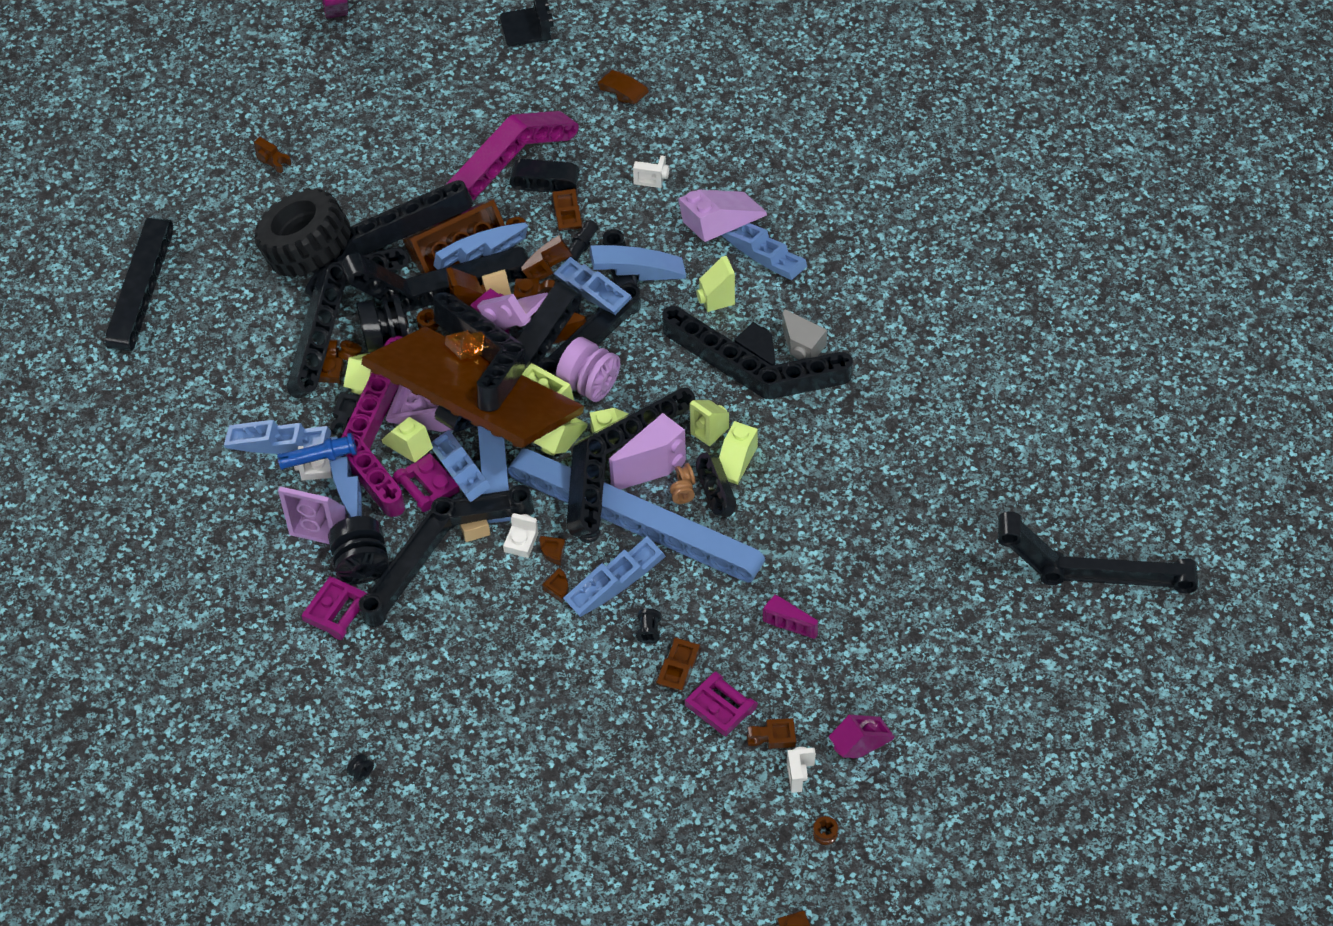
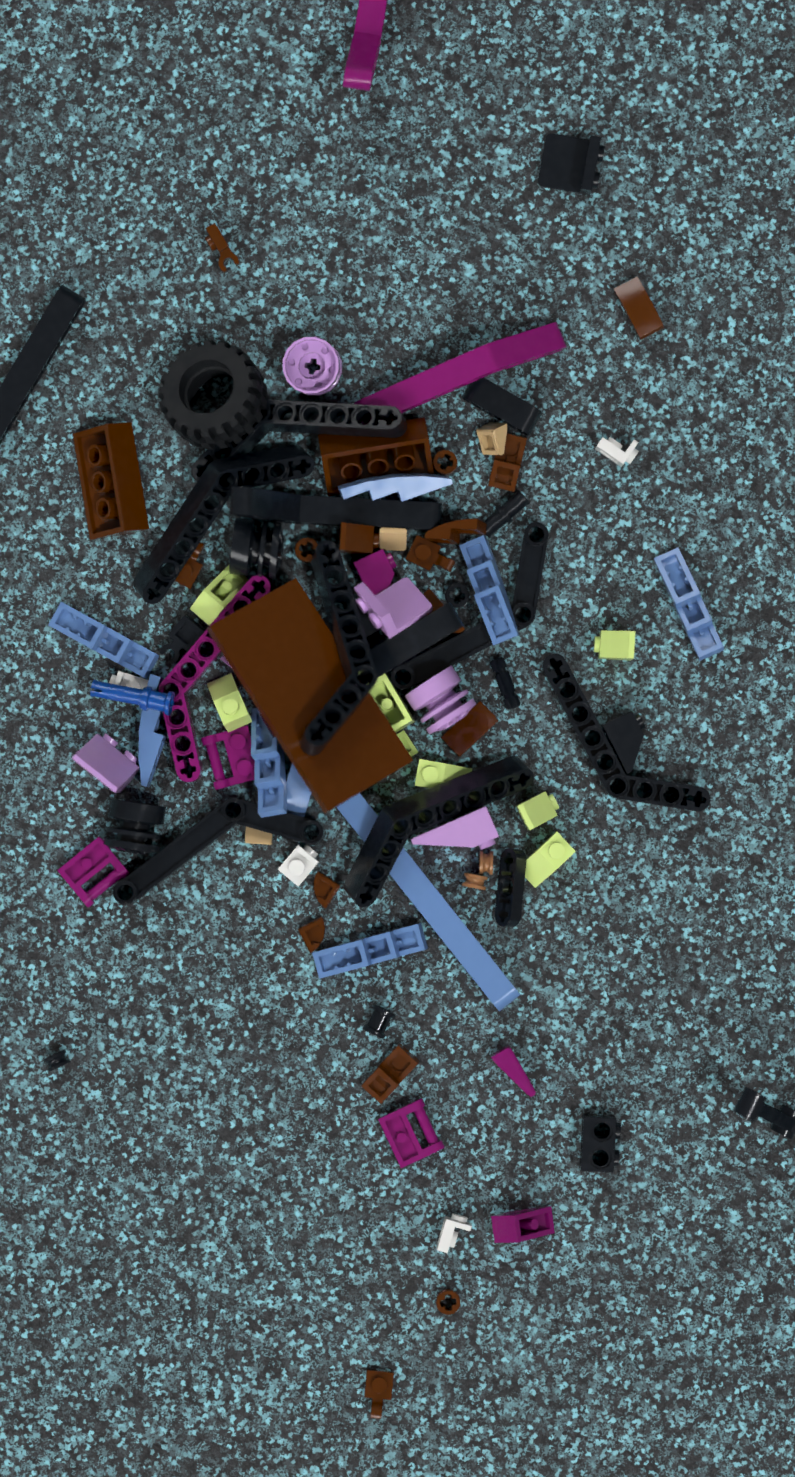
camera: 20 degrees right, 35 degrees up
(239, 328) = (110, 480): none -> reddish brown slope
(348, 349) = (205, 562): reddish brown bush -> none
(376, 190) = (303, 353): none -> lavender wheel
(465, 344) = (322, 637): clear orange bracket -> none
(547, 197) = (492, 438): none -> tan slope
(625, 390) = (469, 729): none -> reddish brown slope
(637, 261) = (548, 578): medium blue slope -> none
(637, 350) = (505, 683): none -> black axle
(718, 212) = (666, 541): lavender slope -> none
(777, 733) = (448, 1187): reddish brown plate -> none
(802, 336) = (675, 744): light grey slope -> none
(891, 646) = (591, 1143): none -> black brick

